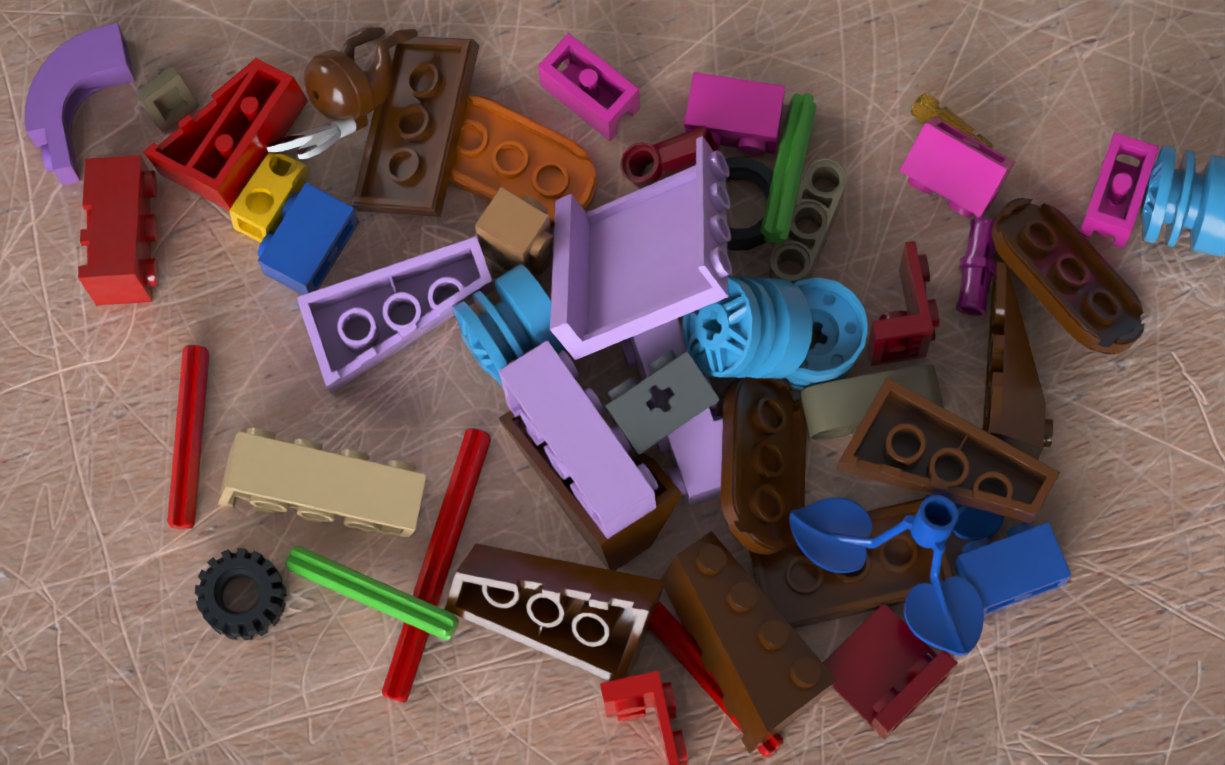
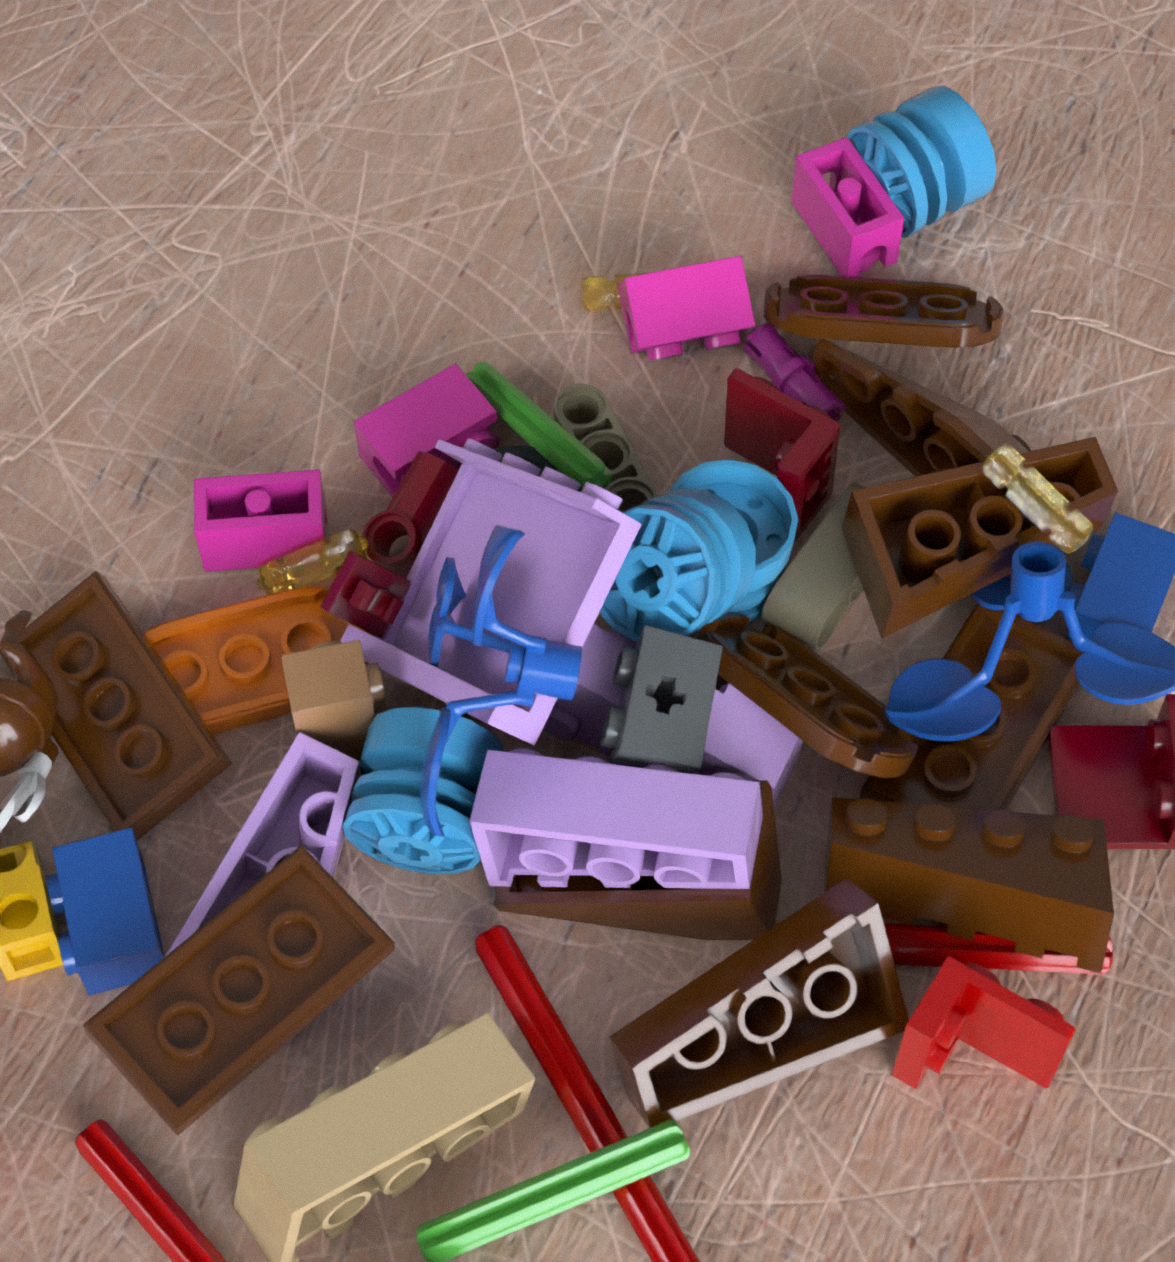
camera: 50 degrees left, 15 degrees down
(317, 348) = (238, 989): none -> reddish brown tile
(592, 138) = (311, 562): none -> clear yellow axle
(596, 184) = (366, 594): none -> dark red tile
(599, 319) = (532, 662): none -> blue plant
(978, 478) = (1037, 499): none -> clear yellow axle

